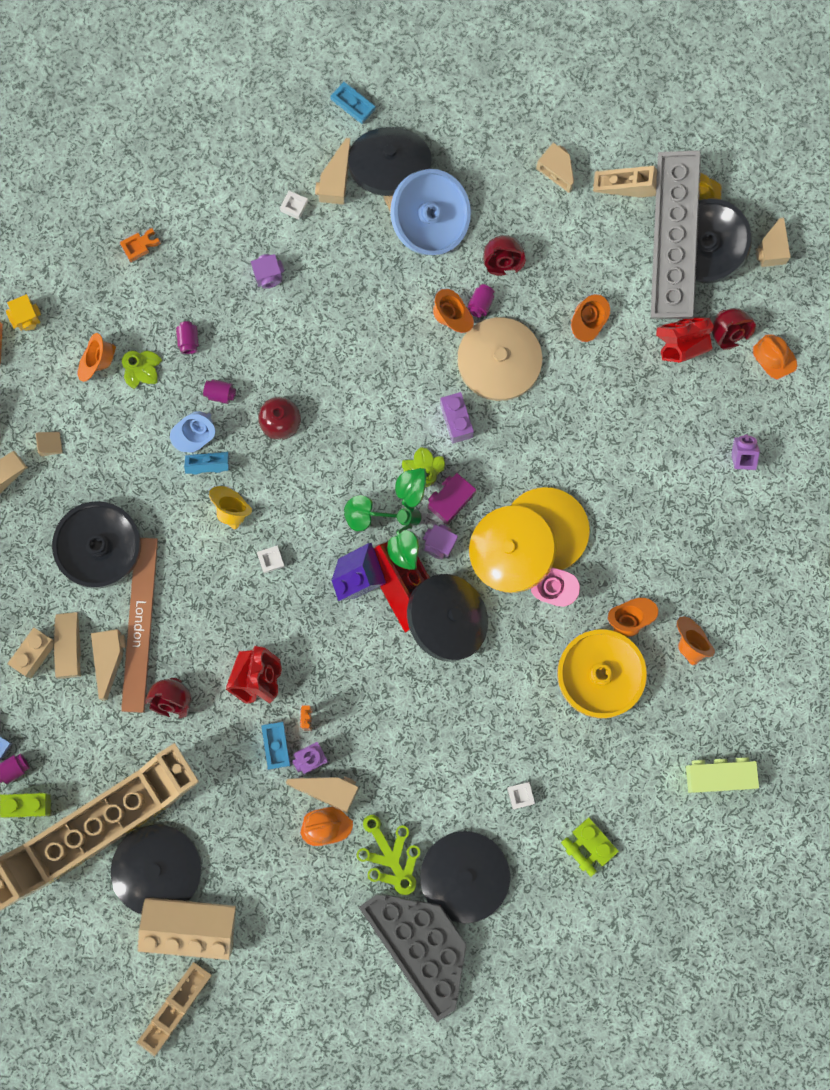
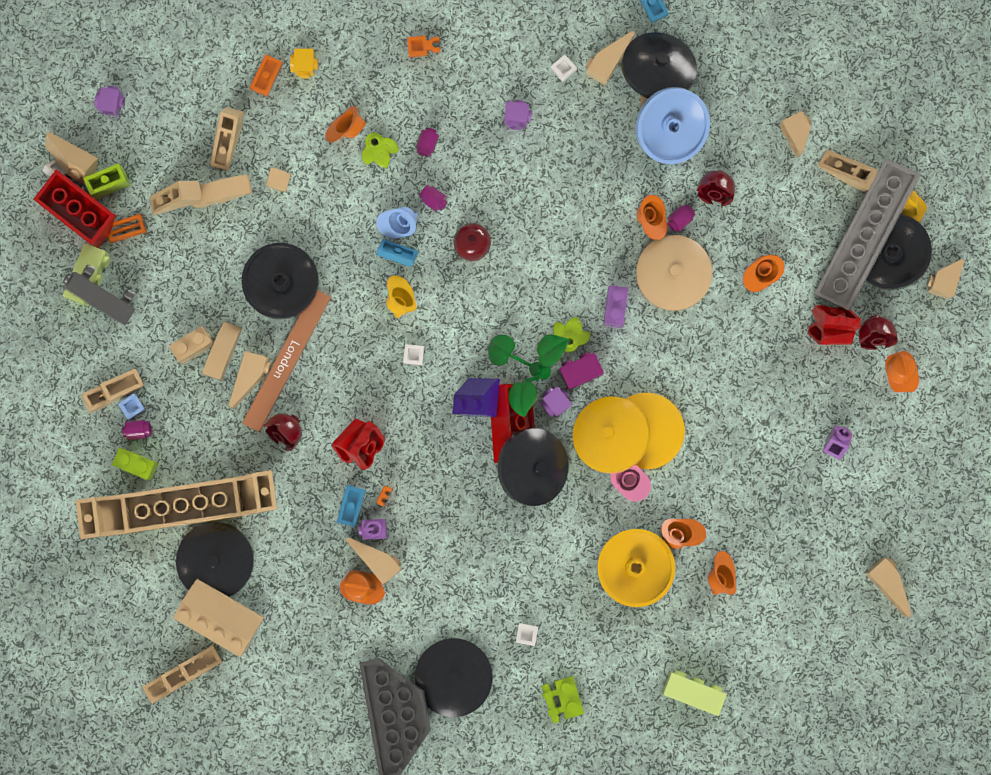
camera: 25 degrees right, 5 degrees up
(390, 858) = (402, 635): lime plant -> none

